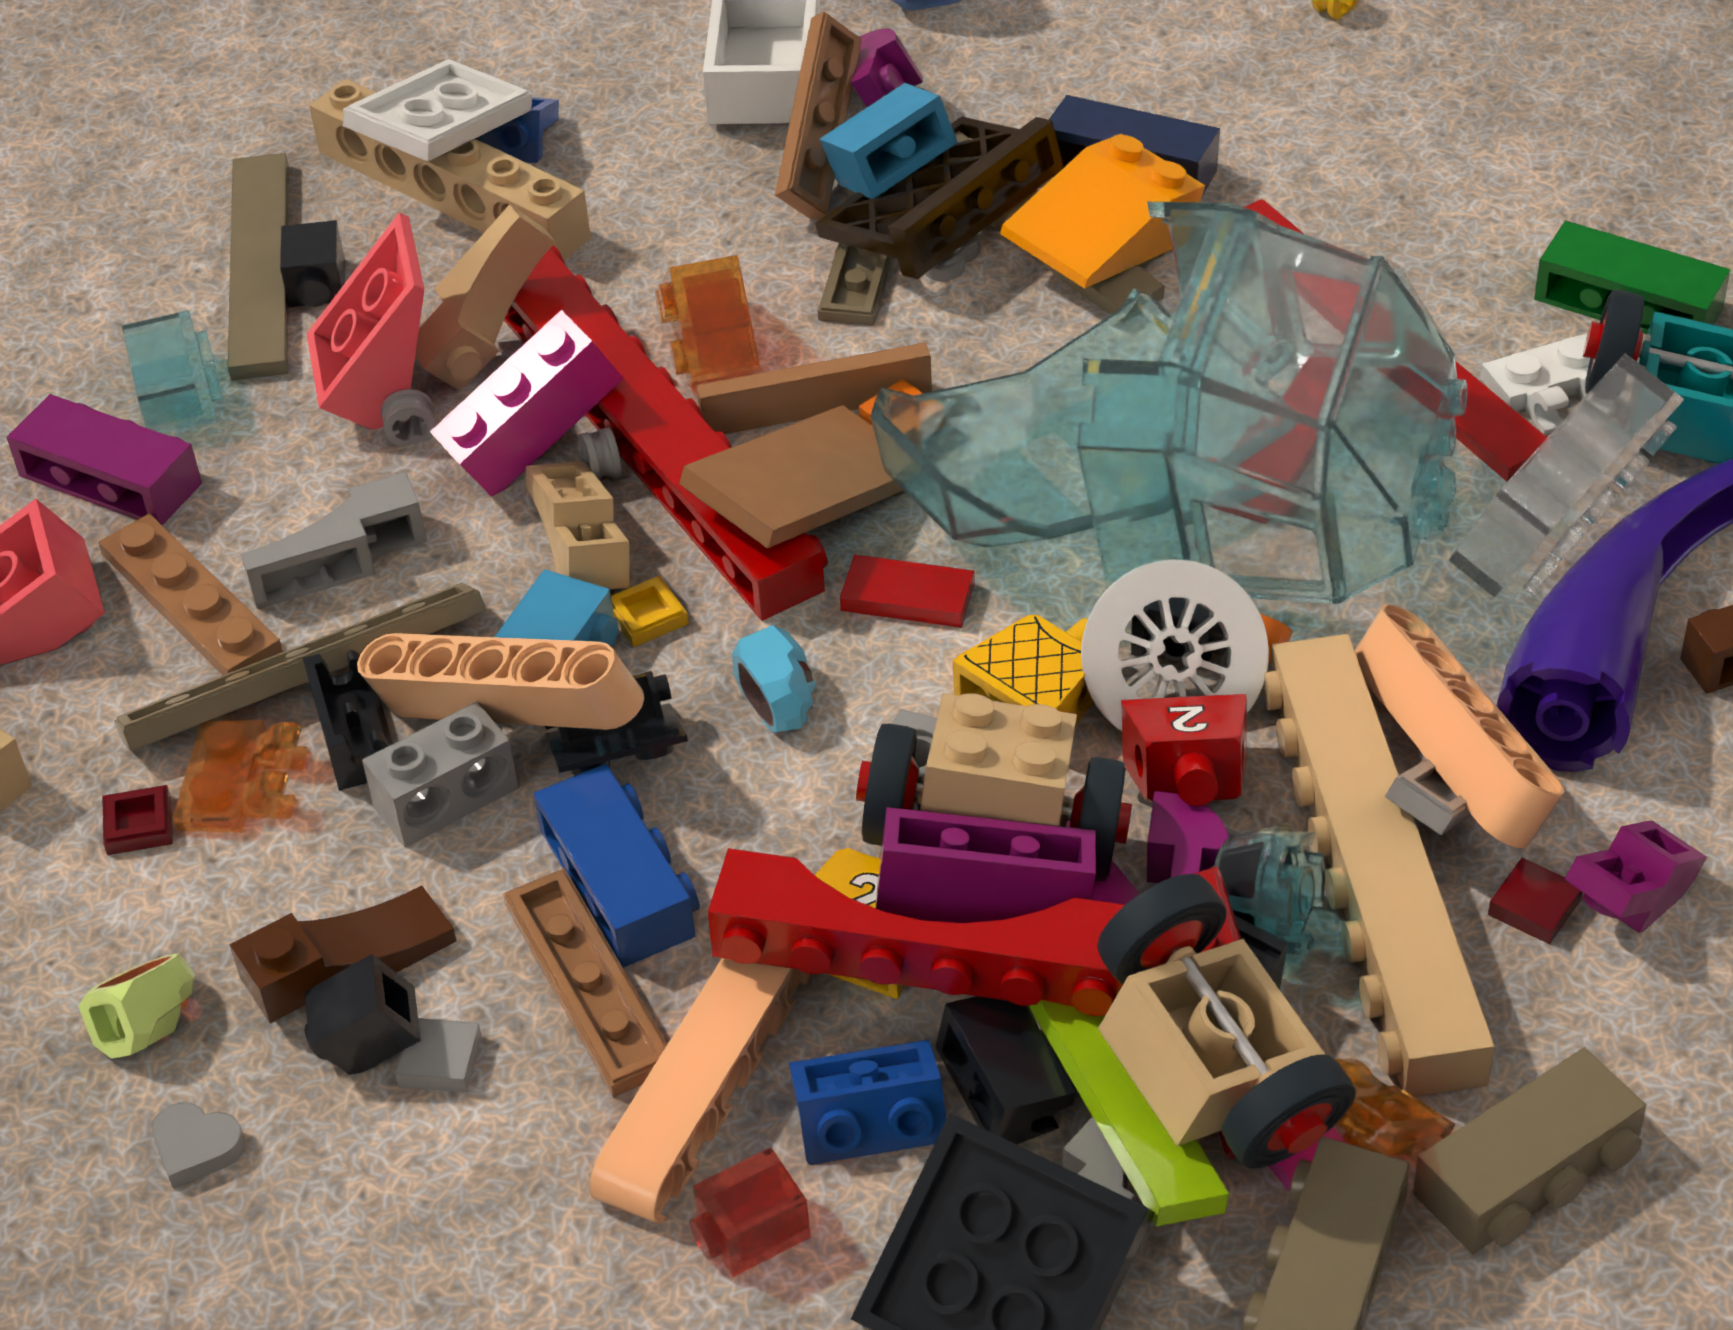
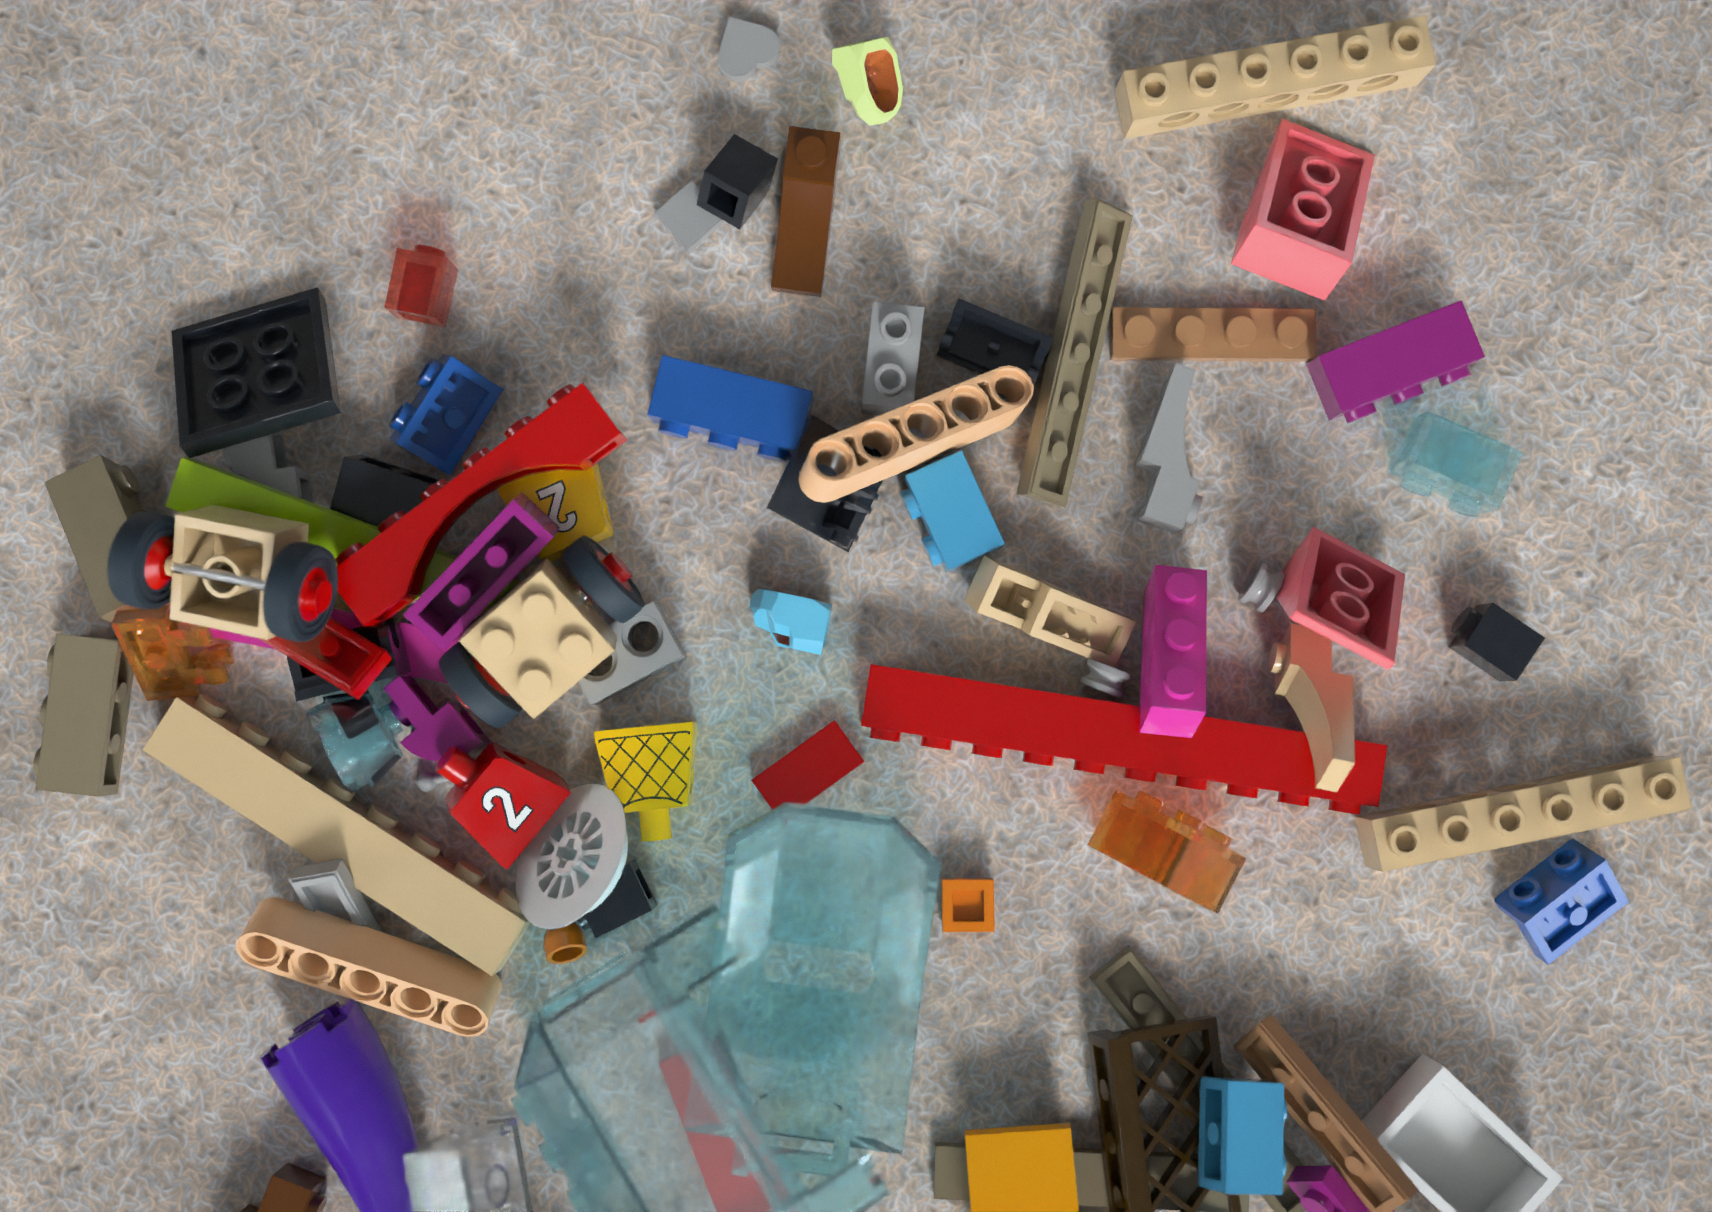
camera: 130 degrees right, 40 degrees up
(137, 820) = (1032, 176): dark red tile -> none
(224, 778) = (1023, 248): clear orange plate -> none
(256, 284) = (1567, 628): dark tan tile -> none
(437, 109) = (1570, 833): white tile -> none
(587, 980) = (662, 331): medium nougat tile -> none
(648, 611) = (939, 599): yellow tile -> none
(690, 1086) = (525, 311): light nougat beam -> none
(794, 477) = (944, 770): medium nougat tile -> none
(810, 388) = (1039, 868): medium nougat tile -> none
(1534, 901) = (236, 895): dark red tile -> none
(1637, 875) = (188, 957): magenta brick -> none

